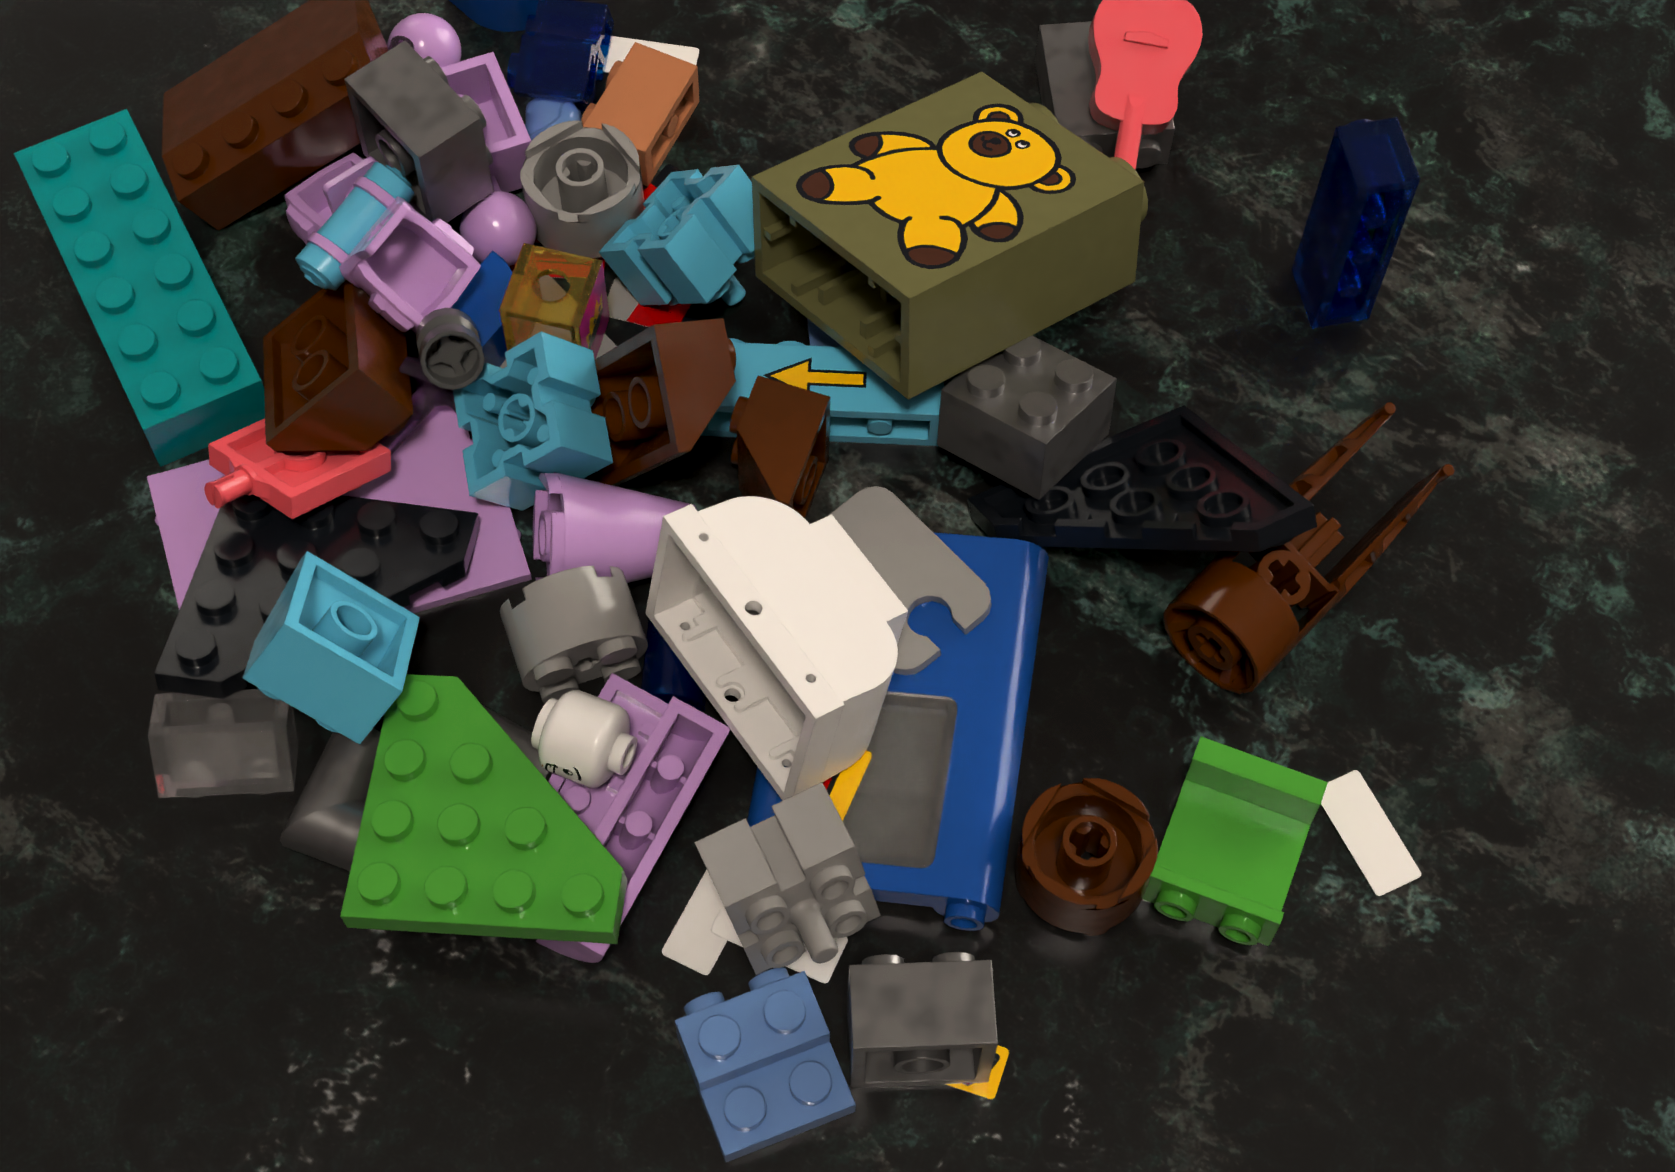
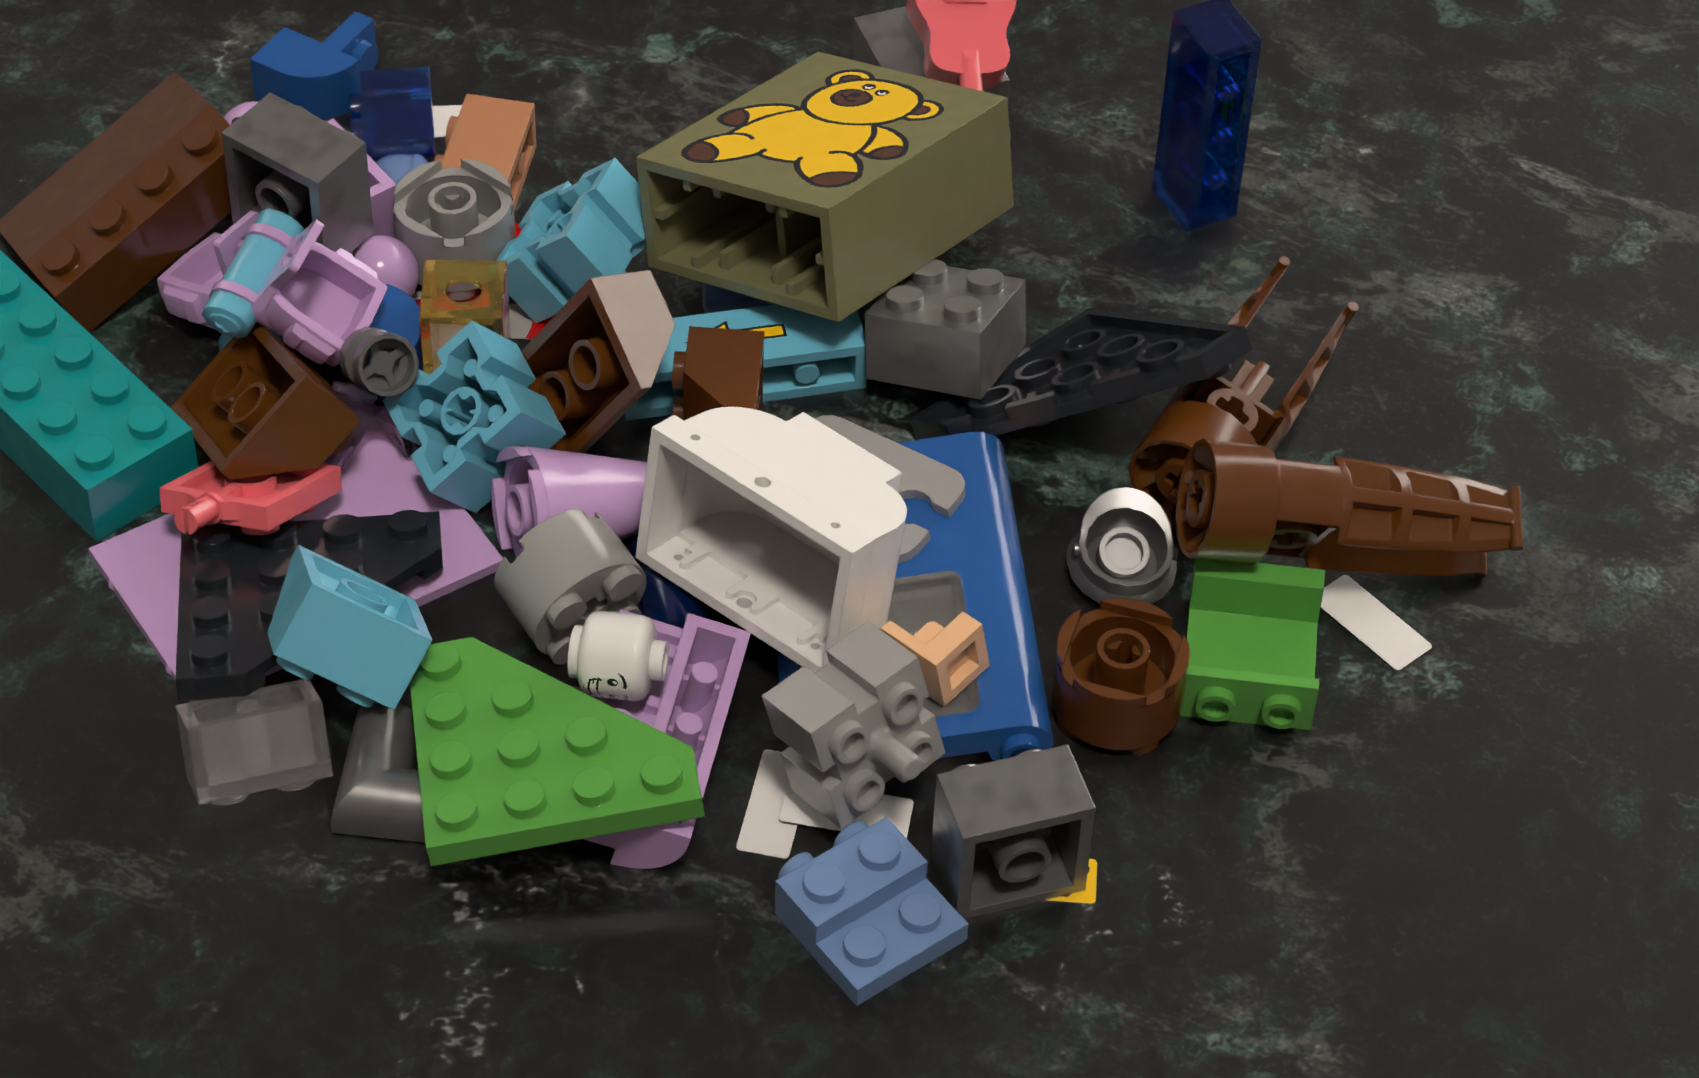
camera: 15 degrees left, 15 degrees down
(903, 802) = (947, 655): none -> light nougat panel
(1135, 703) = (1123, 548): none -> flat silver piece
(1370, 732) = (1340, 516): none -> reddish brown piece

